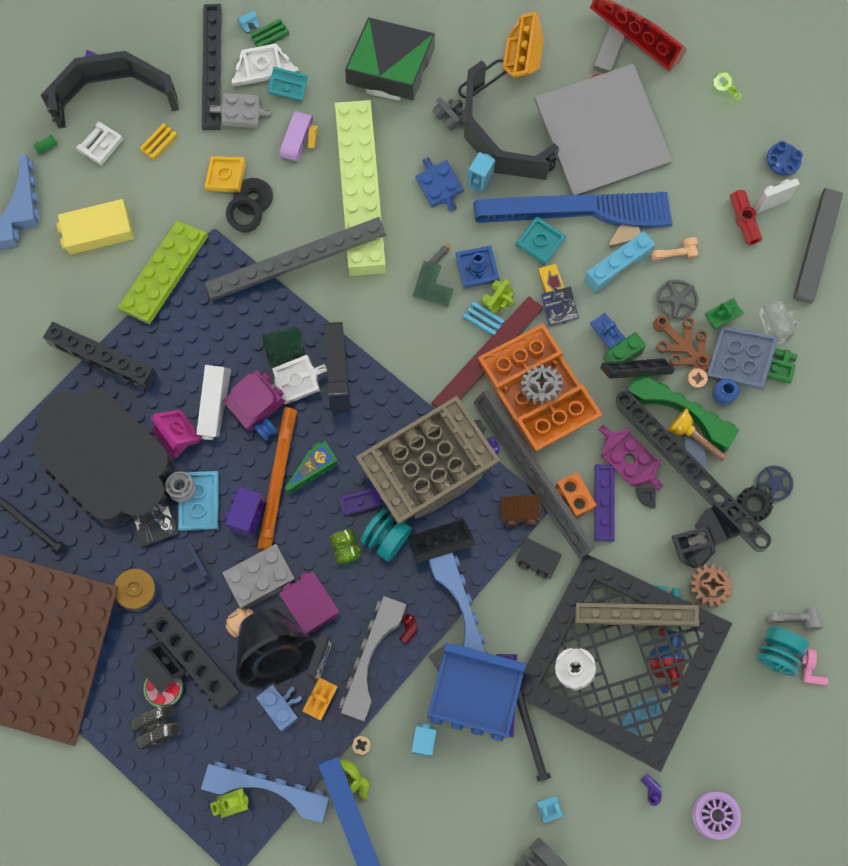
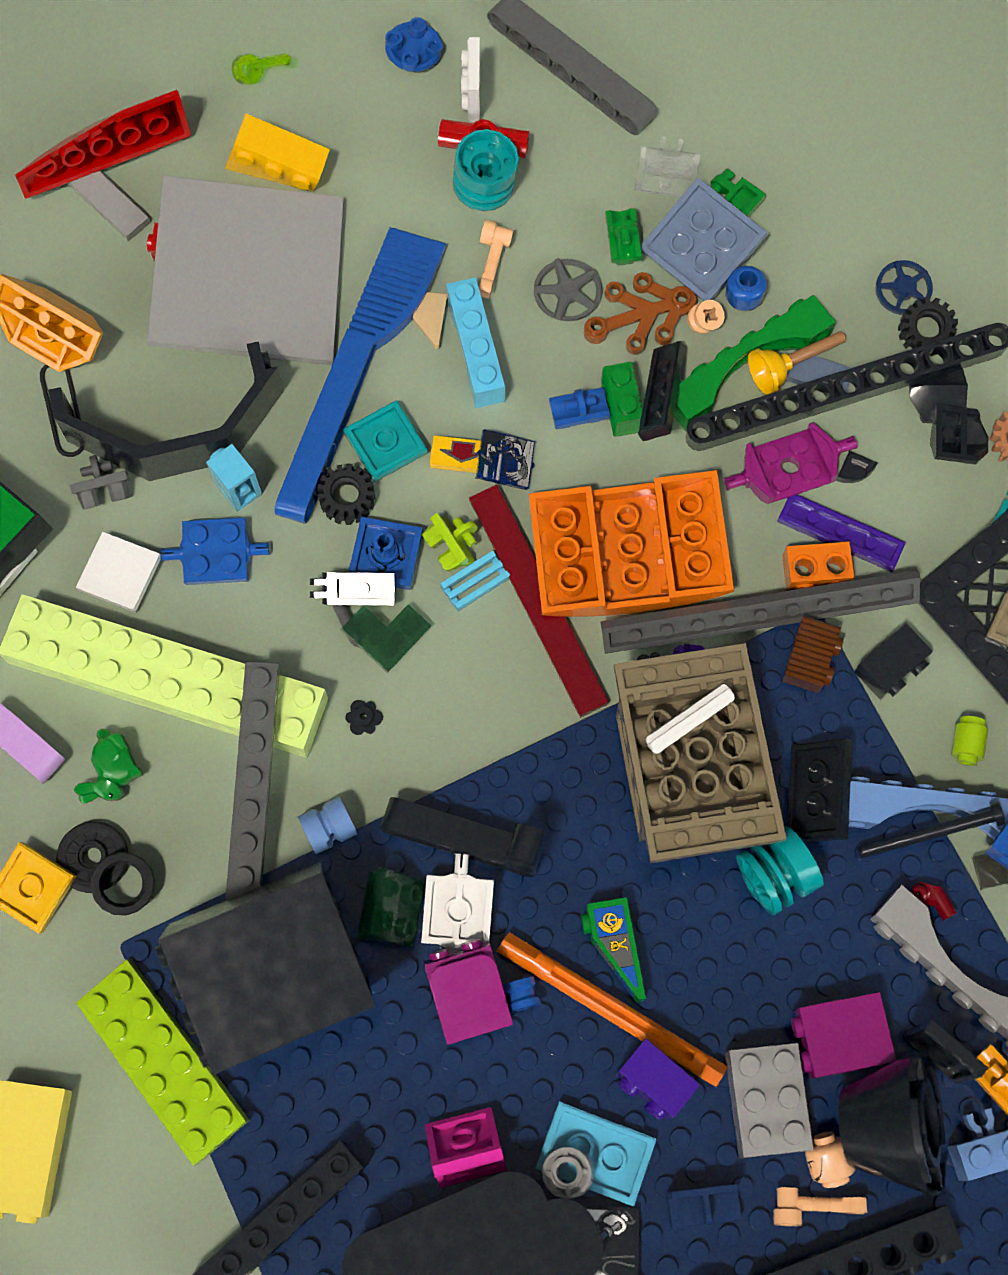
camera: 65 degrees left, 0 degrees up
(210, 612) = (791, 1206): none -> light nougat brick
(212, 407) = (439, 1061): white slope -> none
(221, 290) = (265, 968): none -> black piece
(303, 185) = (113, 766): none -> green animal
(313, 131) = (33, 715): yellow tile -> none
(315, 298) = (327, 825): none -> medium blue wheel
(345, 546) = (770, 943): clear neon green wheel -> none
(360, 501) = (701, 890): dark purple tile -> none
(385, 299) = (358, 725): none -> black plant
(406, 142) = (118, 572): none -> white tile
(442, 445) = (690, 718): none -> white axle
(448, 258) = (355, 588): none -> hinge
(468, 641) = (935, 831): none -> black bar
(501, 224) = (346, 477): none -> black tyre
(511, 618) = (970, 740): none -> lime brick
(551, 387) = (626, 549): light grey gear -> none
(678, 115) = (276, 155): none -> yellow wedge
(730, 217) = (485, 170): none -> teal wheel

